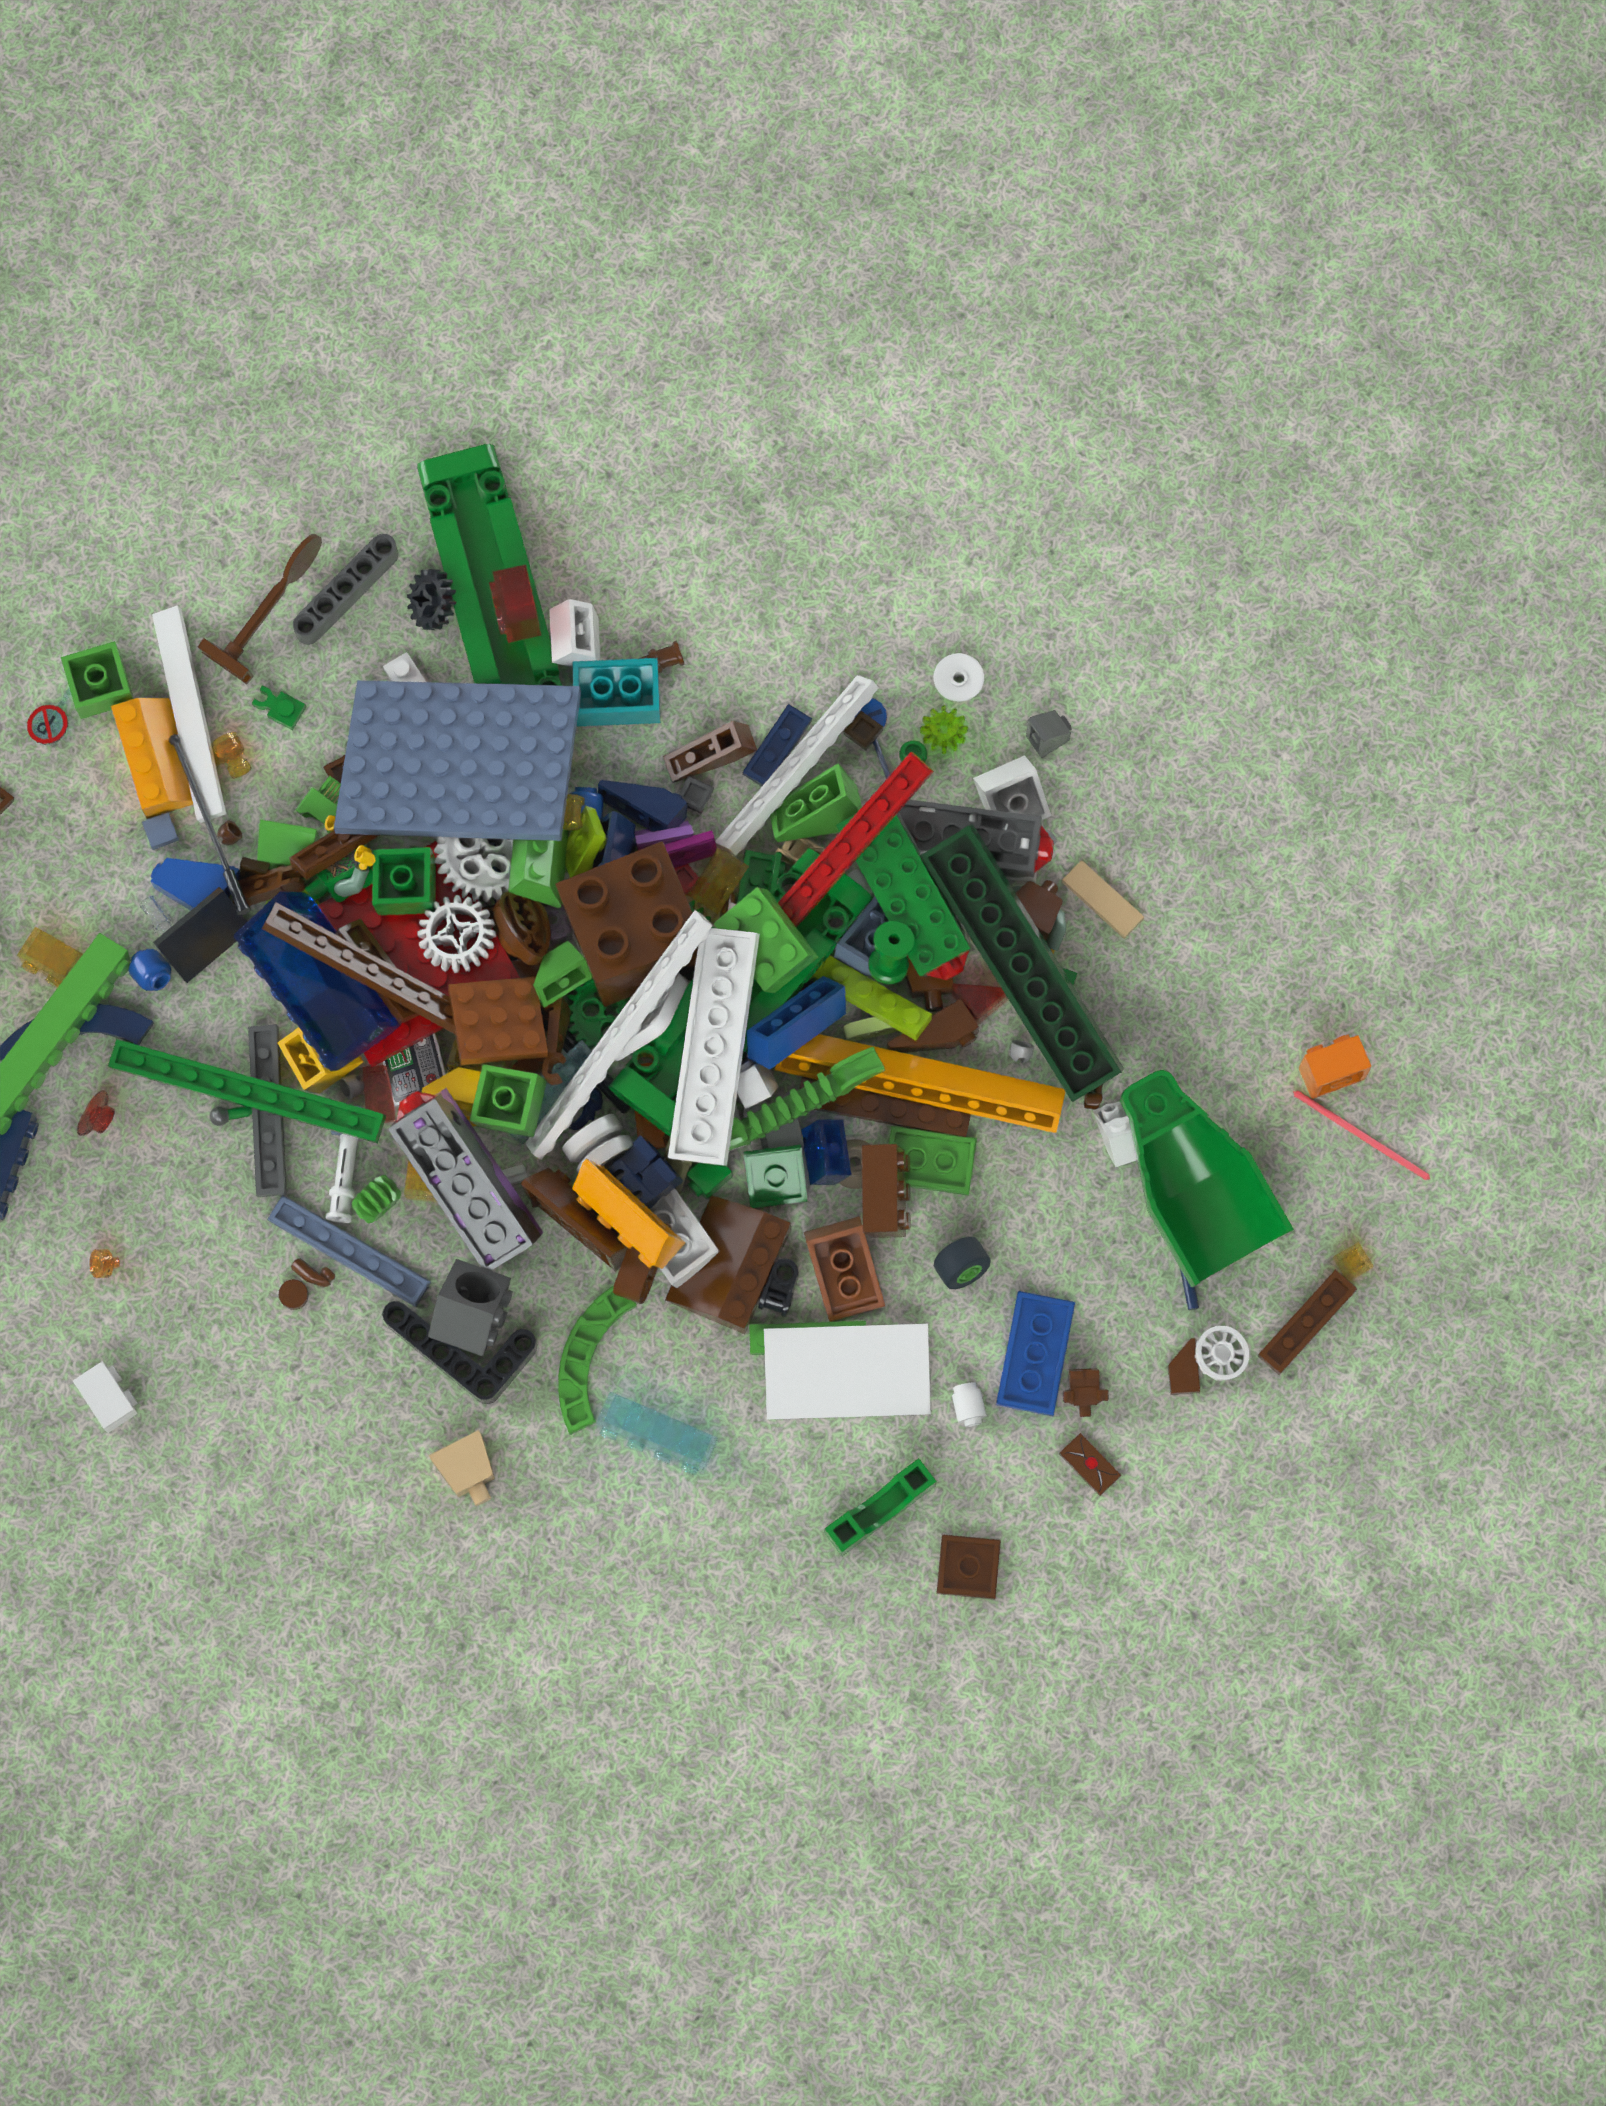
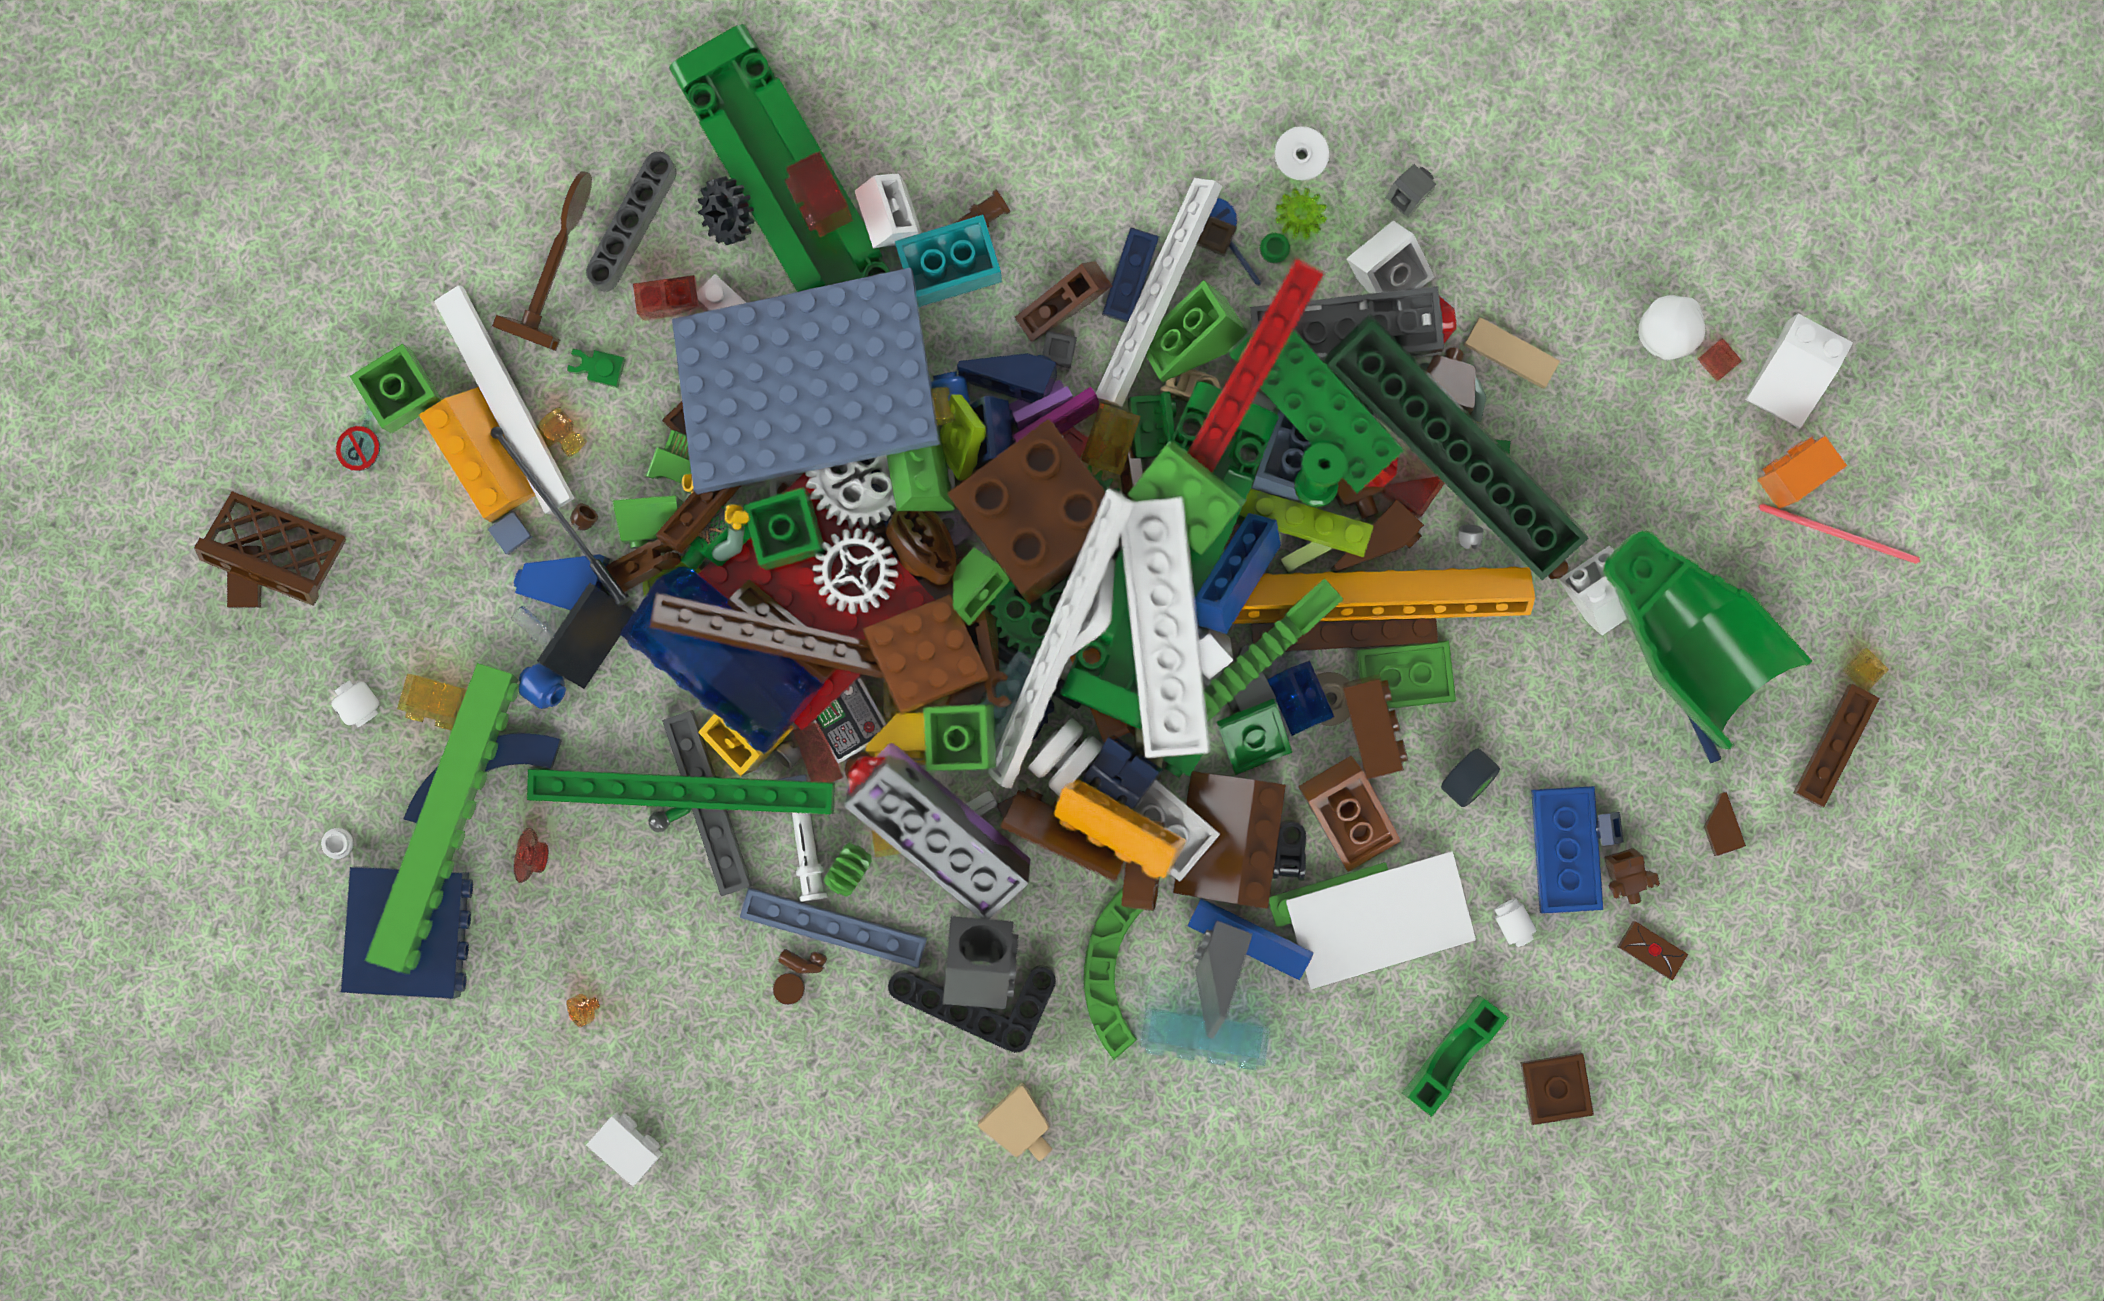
camera: 20 degrees left, 10 degrees up
(251, 867) = (618, 549): dark brown tile -> none
(356, 661) = (665, 297): none -> clear red slope
(688, 1367) = (1218, 971): none -> dark grey slope
(722, 1356) = (1263, 945): none -> blue tile
(1078, 1342) = (1609, 828): none -> dark blue plate
(1222, 1353) = (1758, 801): white wheel -> none
(1252, 911) = (1672, 327): none -> white piece
(1291, 952) = (1719, 359): none -> clear red tile
(1358, 979) = (1798, 370): none -> white slope

